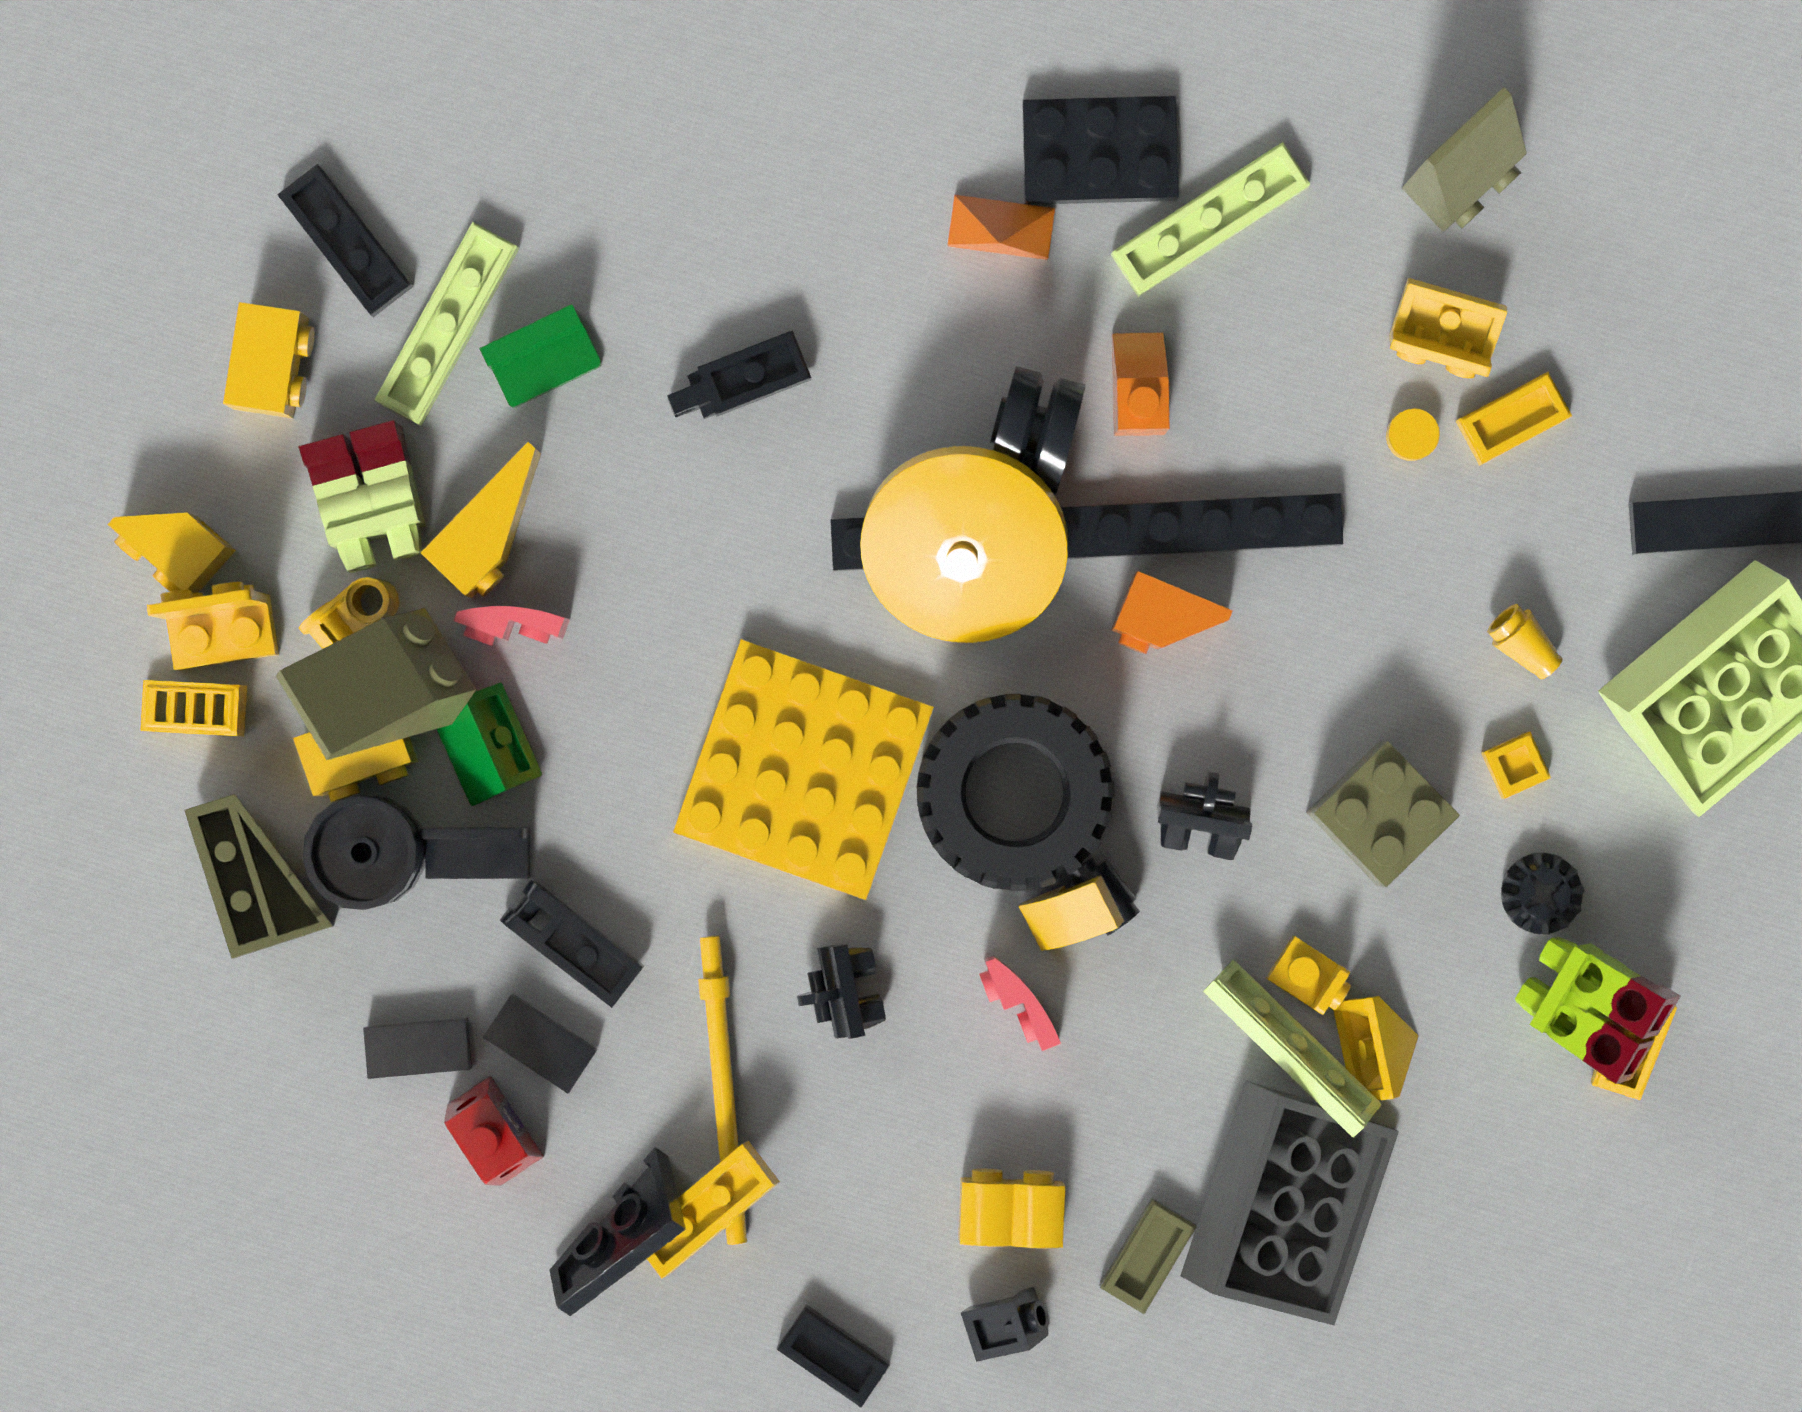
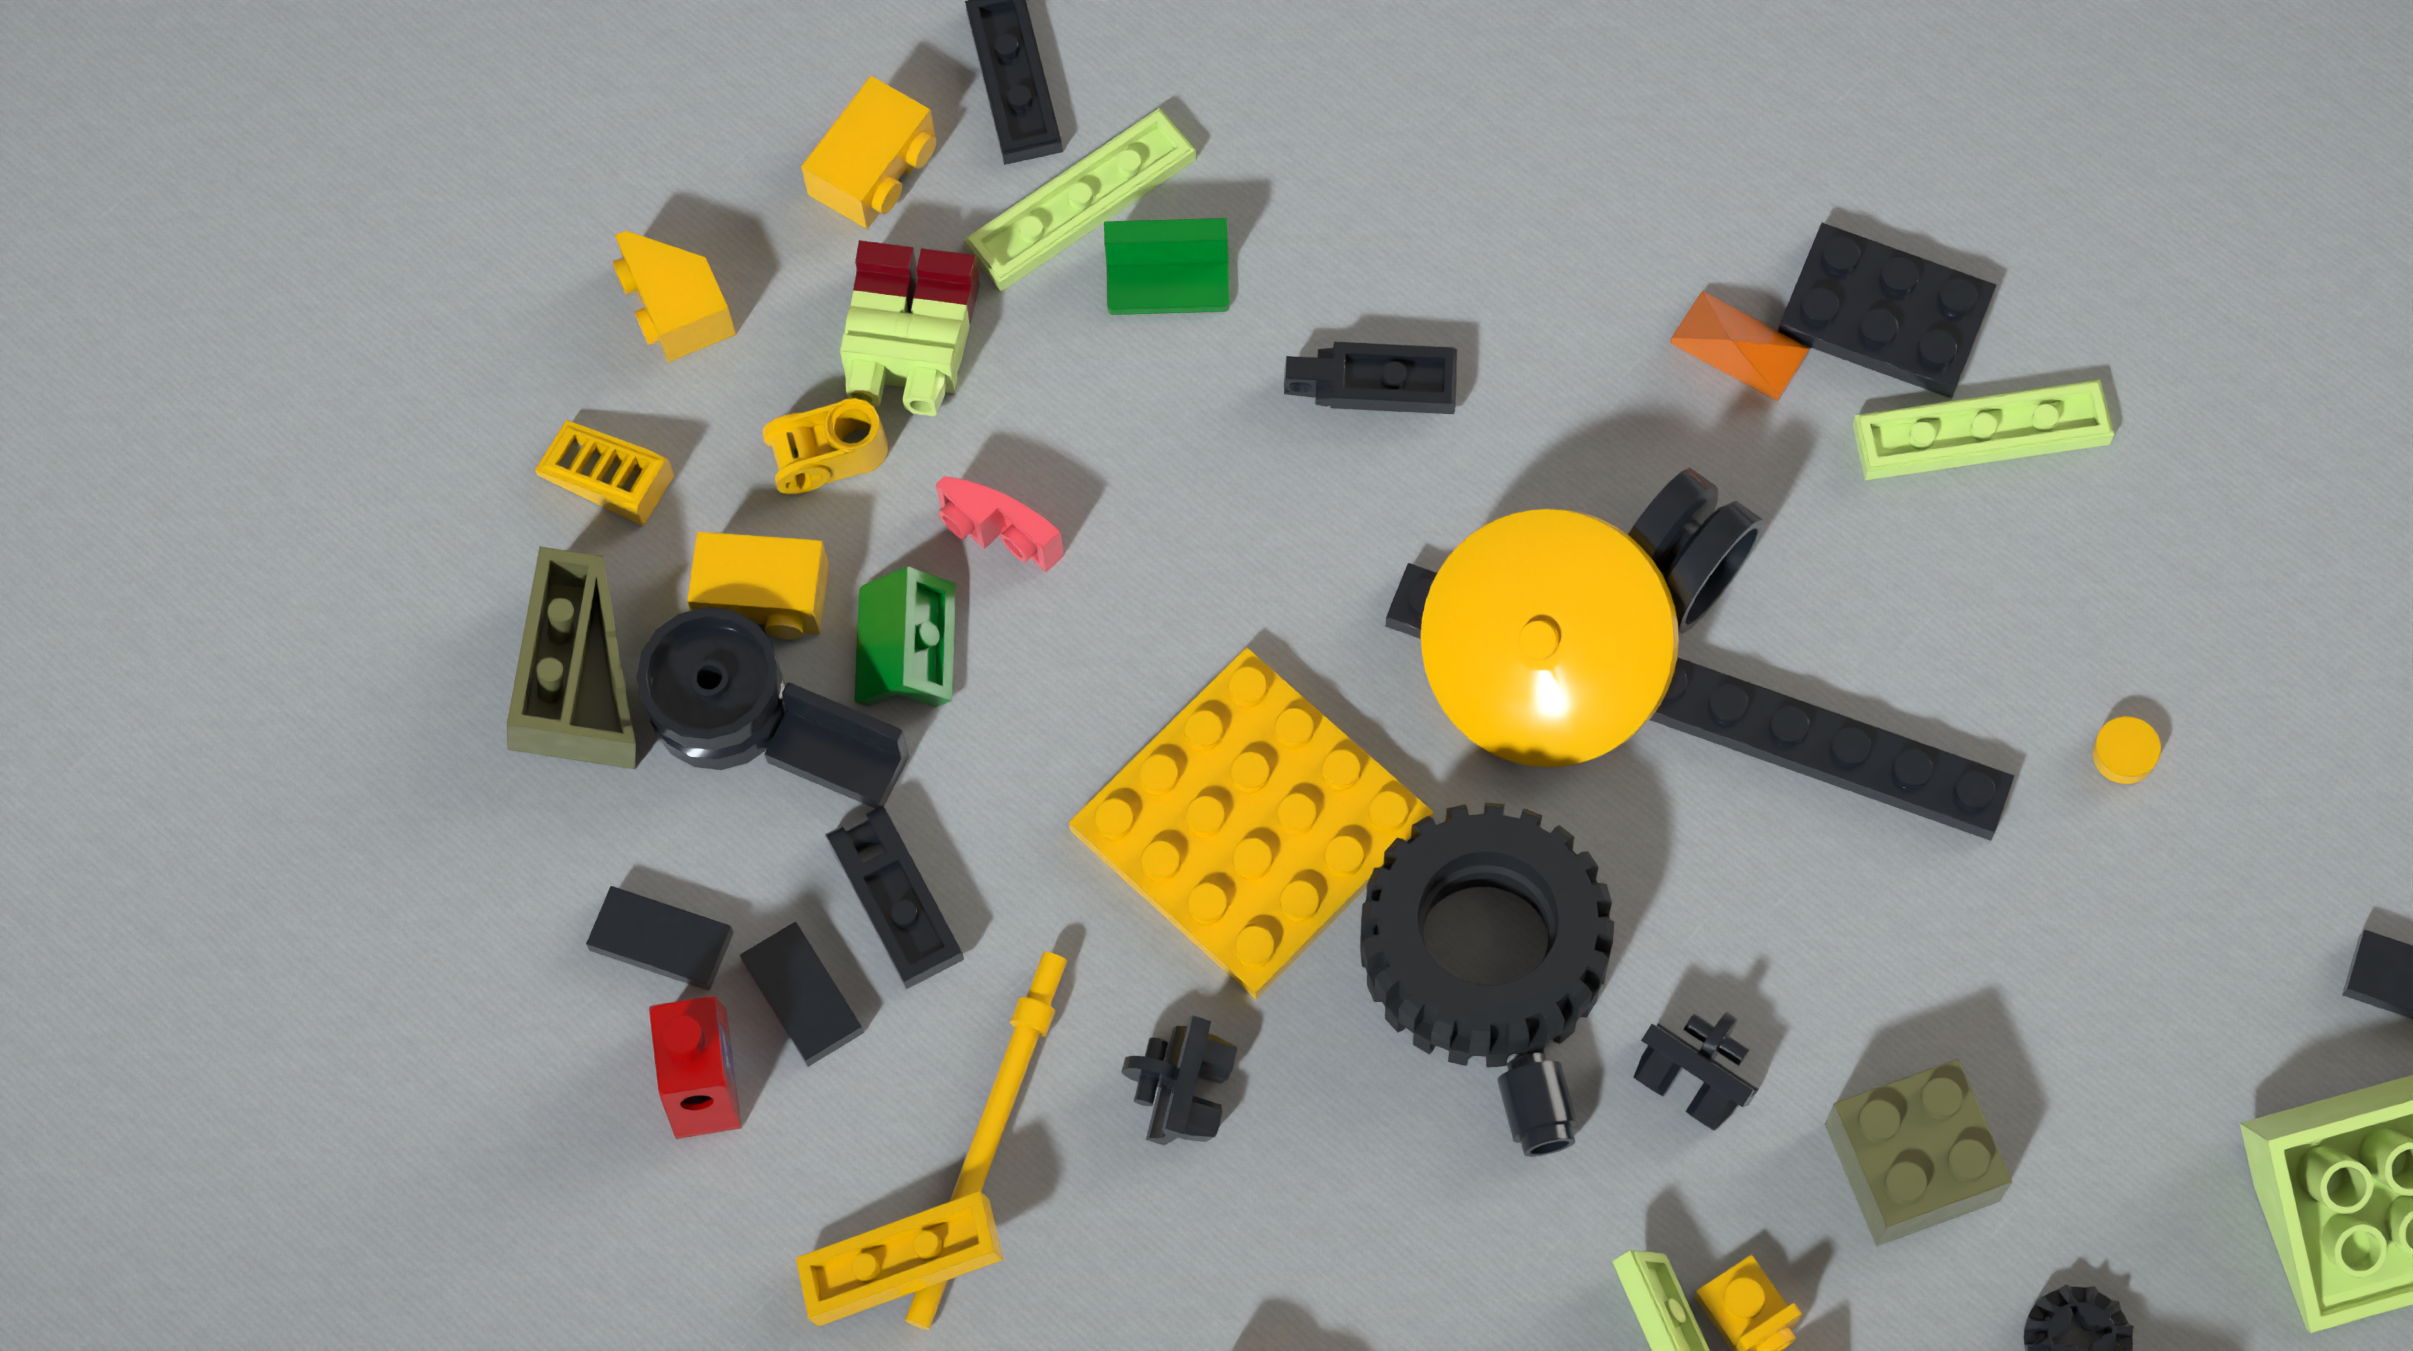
camera: 30 degrees right, 20 degrees down
(217, 627) = (676, 385): yellow bracket -> none
(378, 685) = (822, 506): olive slope -> none
(483, 532) = (1015, 415): yellow slope -> none
(635, 1228) = (806, 1240): black wing -> none
(1006, 985) = (1383, 1172): coral slope -> none
(1071, 914) = (1492, 1101): yellow slope -> none
(1140, 384) = (1824, 569): orange slope -> none
(1162, 614) = (1750, 821): orange slope -> none
(1446, 328) = (2214, 644): yellow bracket -> none
(1469, 164) = (2309, 464): olive slope -> none
(1513, 418) = (2255, 782): yellow tile -> none
(1516, 765) = (2104, 1174): yellow tile -> none
(1524, 640) = (2171, 1032): yellow cone -> none

